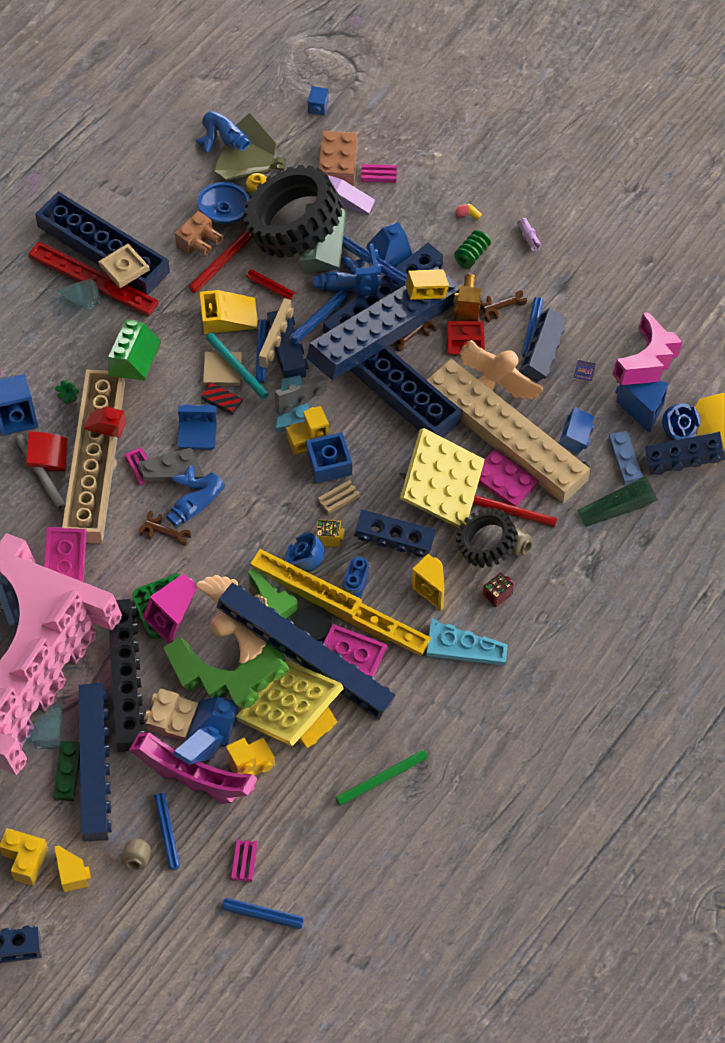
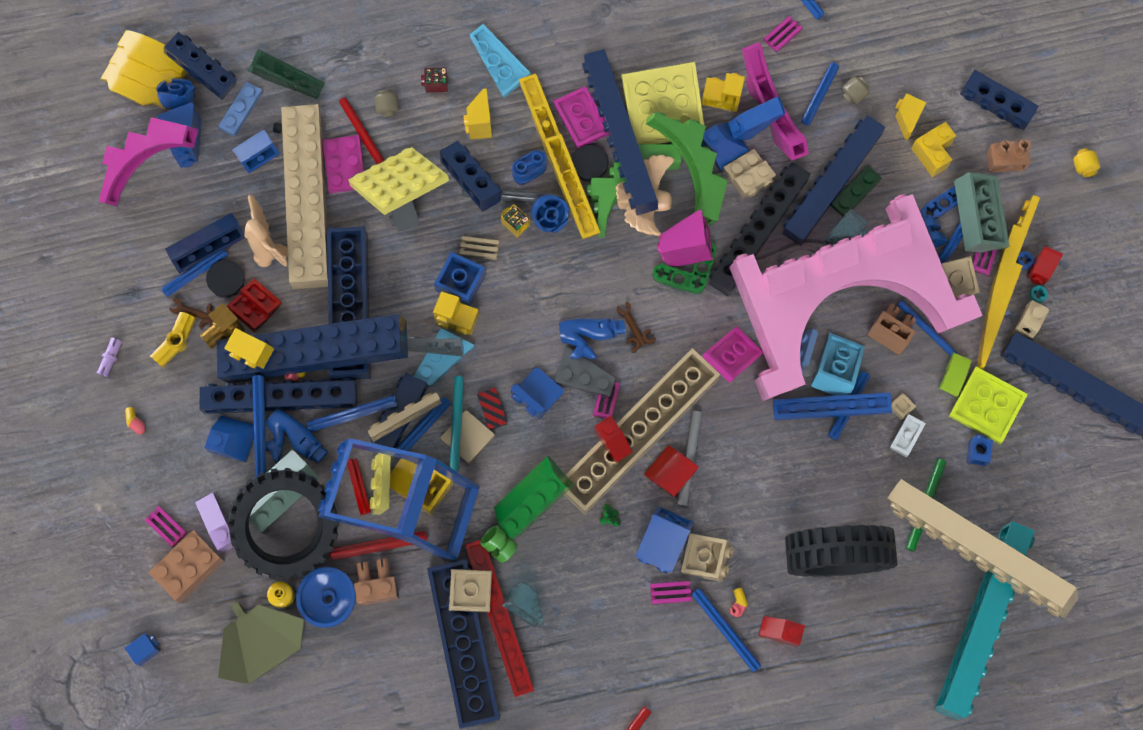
camera: 140 degrees left, 15 degrees up
(136, 310) = (500, 545): none -> bright green wheel
(219, 283) = (413, 502): none -> blue window
(229, 132) = (252, 675): blue piece -> none
(253, 288) = (380, 483): none -> light yellow plate
(368, 278) = (278, 397): blue bracket -> none
(381, 777) = (642, 17): green piece -> none
(472, 249) = (169, 379): green piece -> none
(477, 522) = (427, 107): black tyre -> none
(494, 275) = (181, 329): none -> yellow piece
(505, 338) = (225, 278): none -> black tile
(584, 370) = (194, 203): clear purple tile -> none

